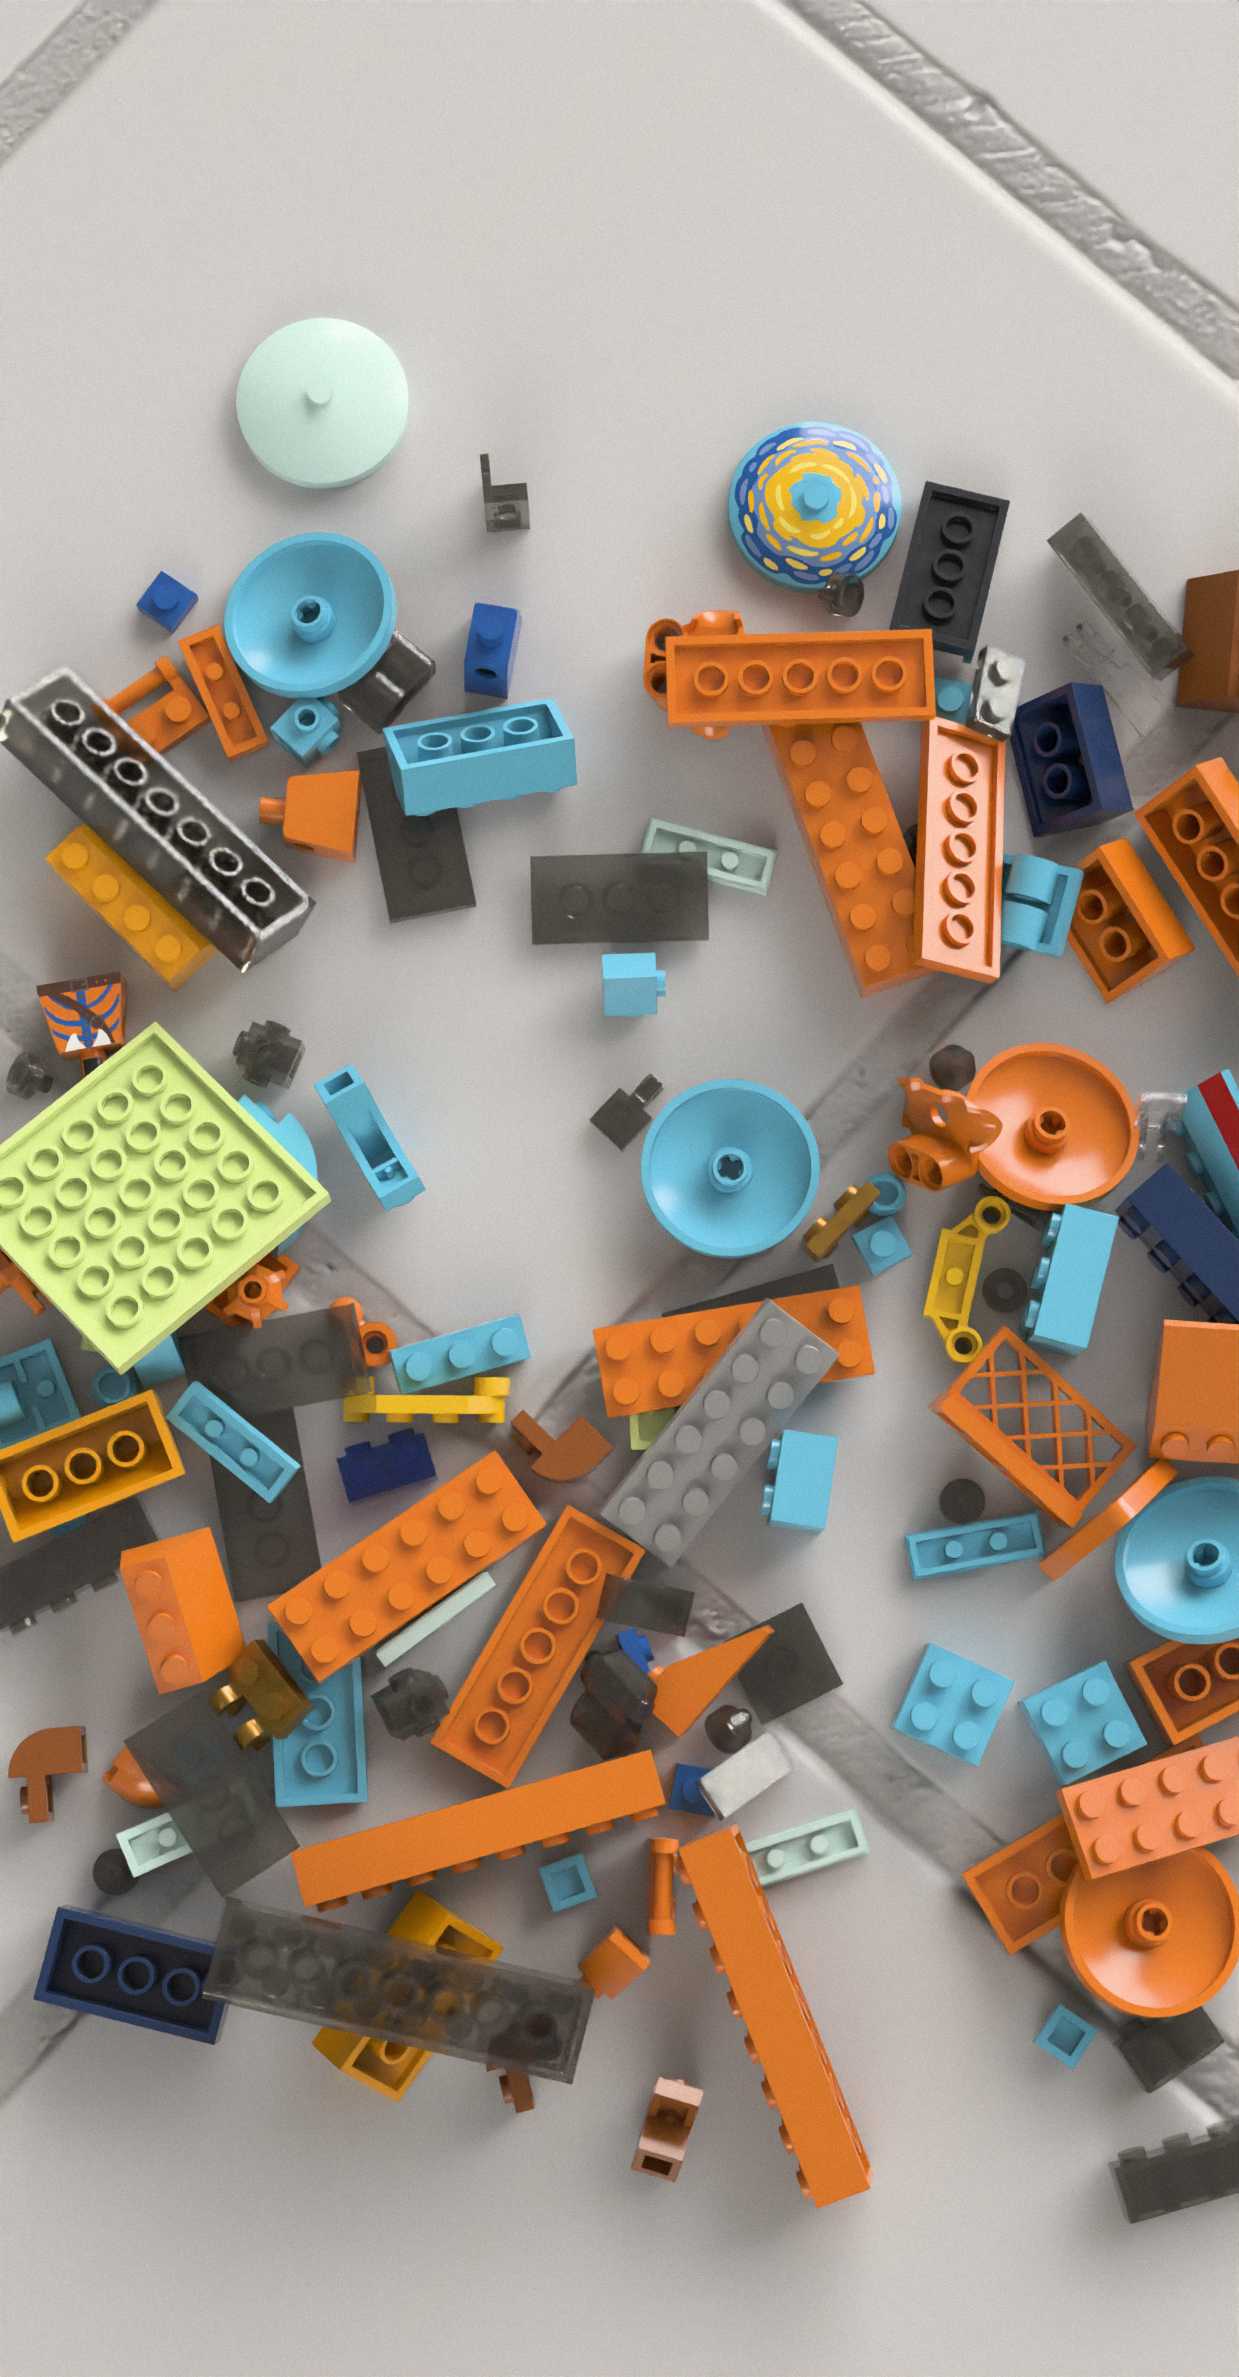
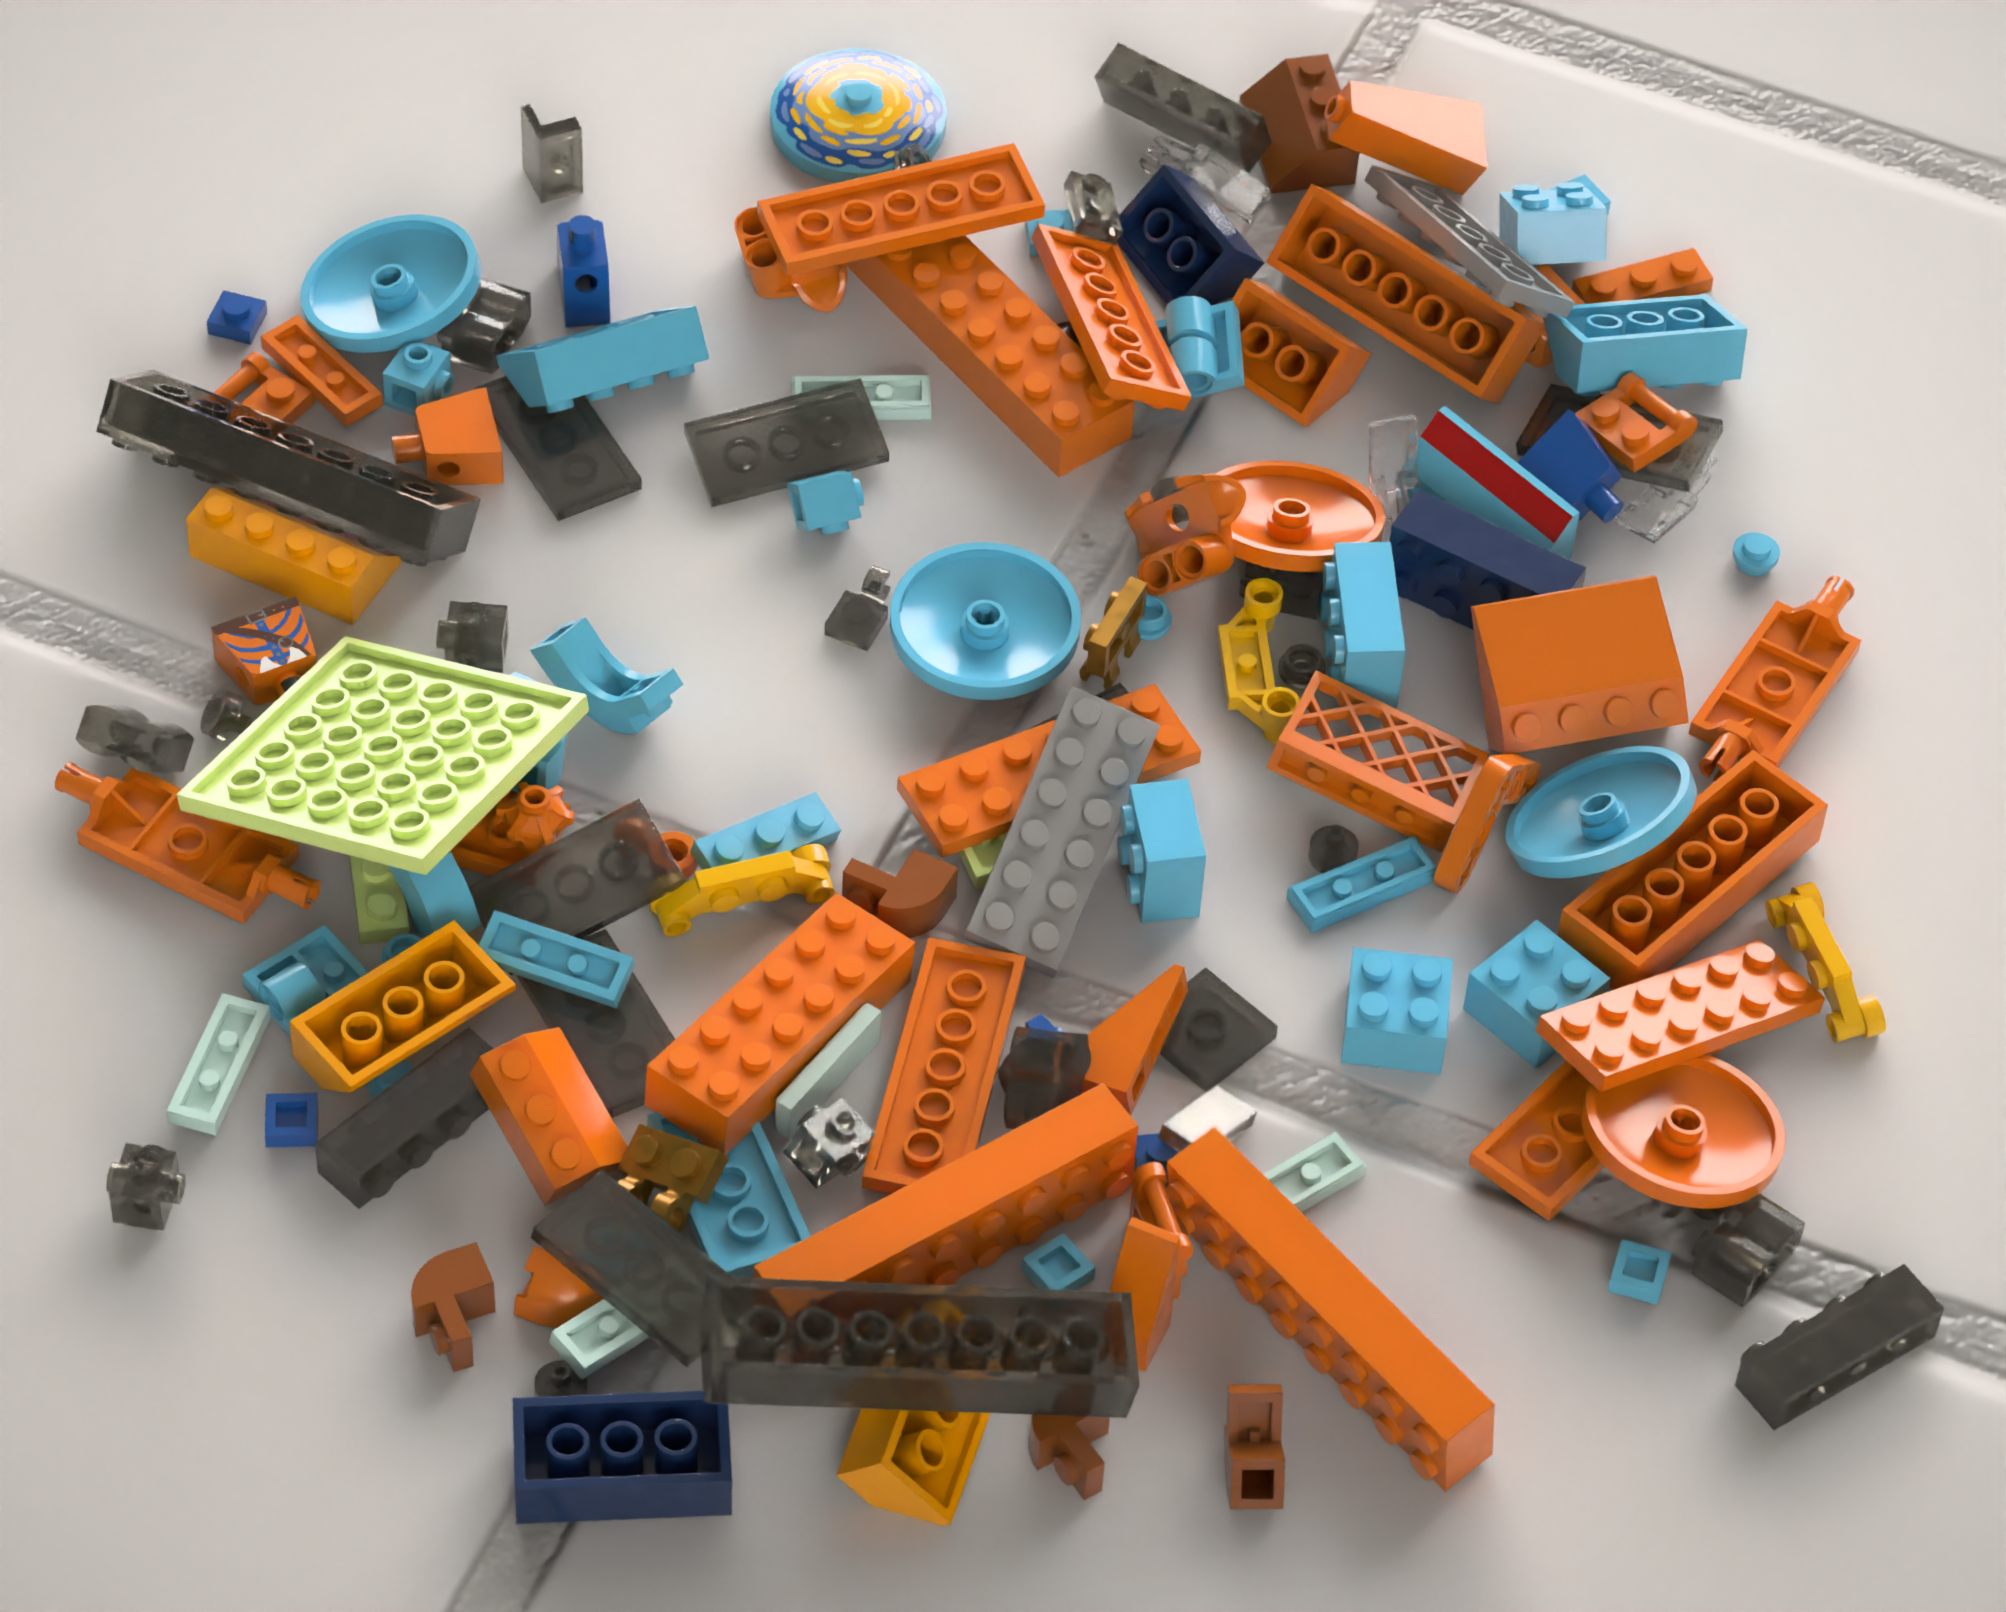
camera: 20 degrees left, 30 degrees down
(322, 403) = (340, 137): light aqua dish -> none
(387, 1468) = (723, 949): clear blue brick -> none
(645, 1605) = (1060, 1001): clear smoke tile -> none
(729, 1728) = (1173, 1089): clear smoke tile -> none
(881, 1245) = (1163, 662): medium azure plate -> none
(950, 567) = (1009, 108): black hinge -> none

